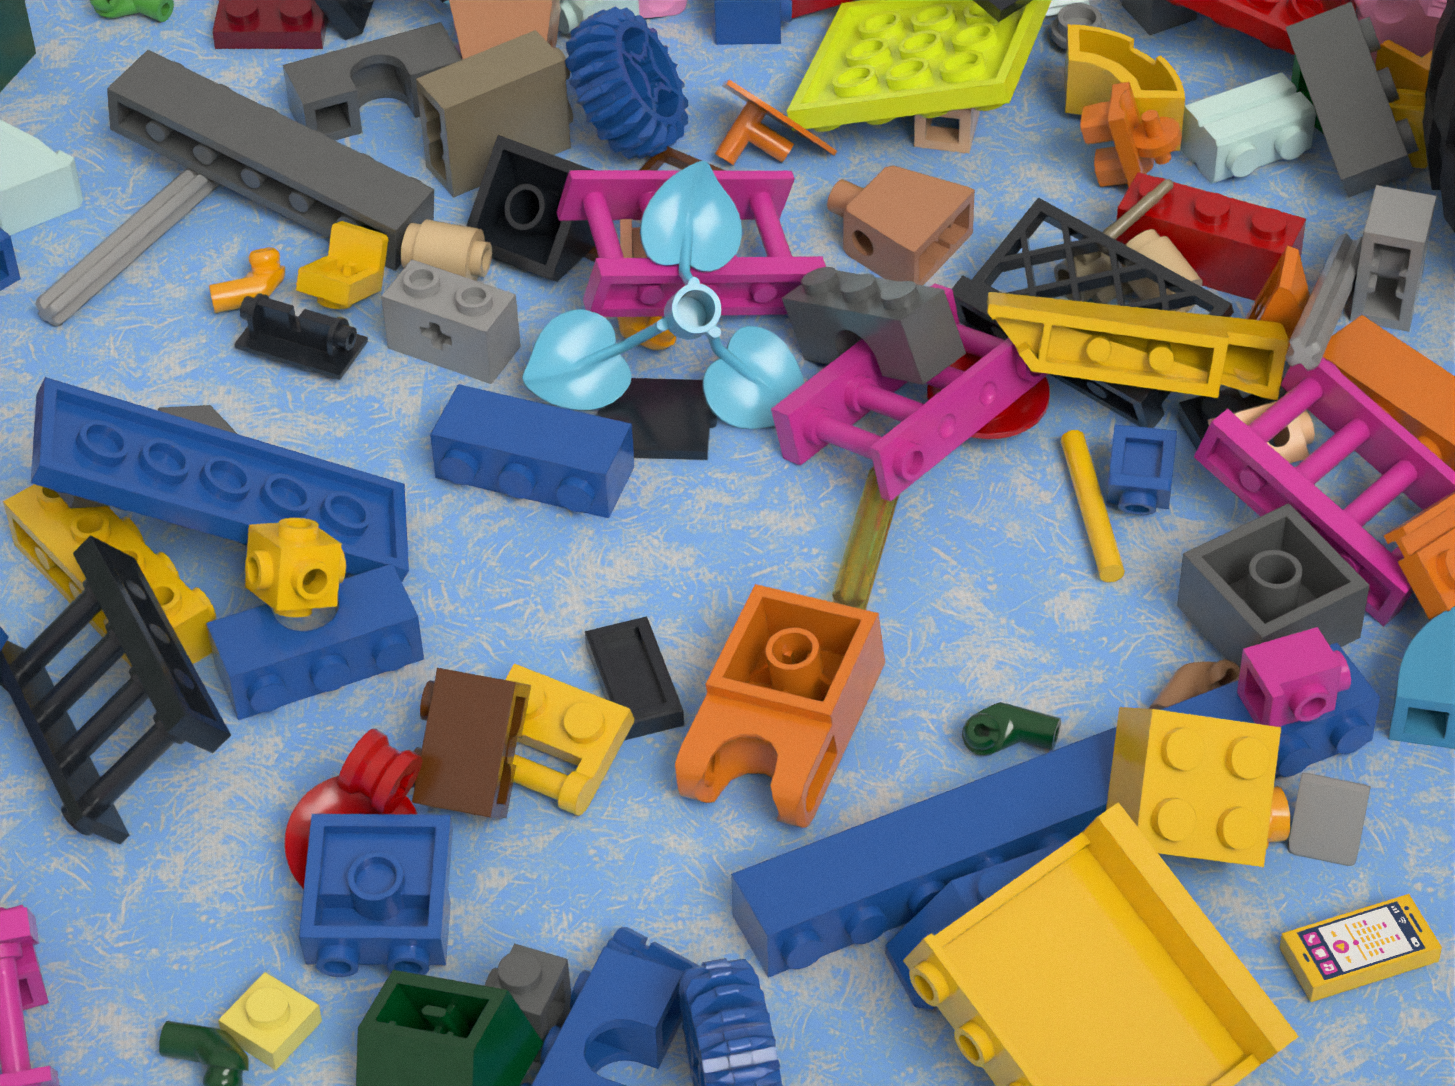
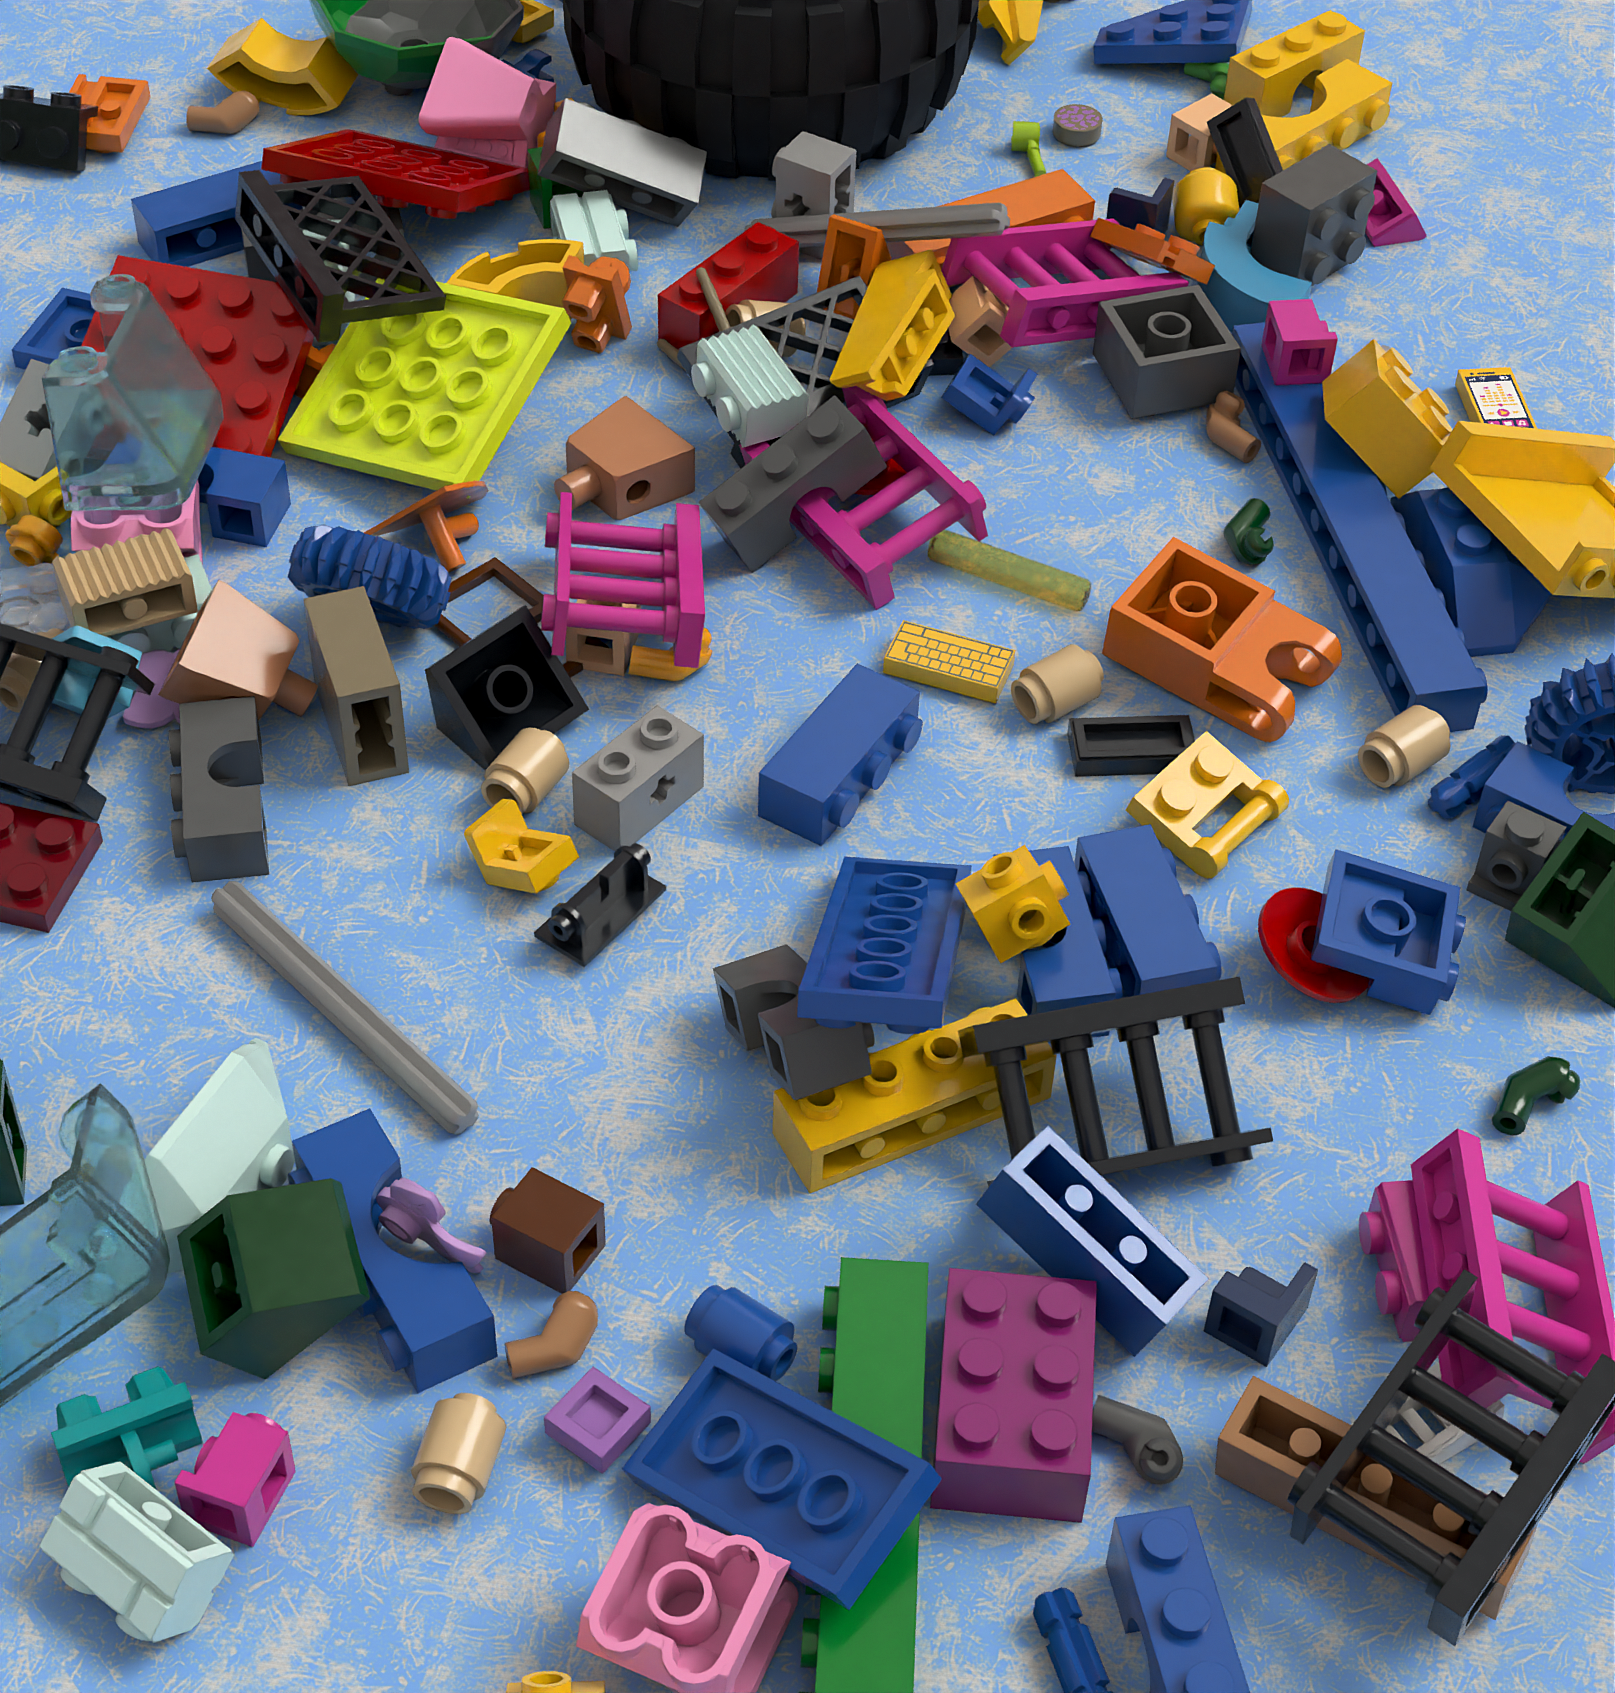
camera: 80 degrees left, 0 degrees up
(263, 153) = (322, 879): dark grey brick -> none
(263, 279) = (492, 934): light orange arm -> none
(271, 1020) = (1493, 1046): light yellow plate -> none
(322, 714) = (1145, 915): none -> blue brick
(379, 771) = (1290, 879): red wheel -> none
(469, 742) = (1241, 828): reddish brown brick -> none
(666, 418) = (795, 674): black piece -> none
(684, 896) = (1404, 747): none -> tan brick
(688, 225) = (783, 568): medium azure plant -> none
(688, 596) = (1057, 684): none -> tan brick
(709, 517) = (949, 661): none -> yellow tile
(988, 251) = (749, 386): none -> light aqua brick
(1092, 506) = (1004, 438): yellow bar -> none

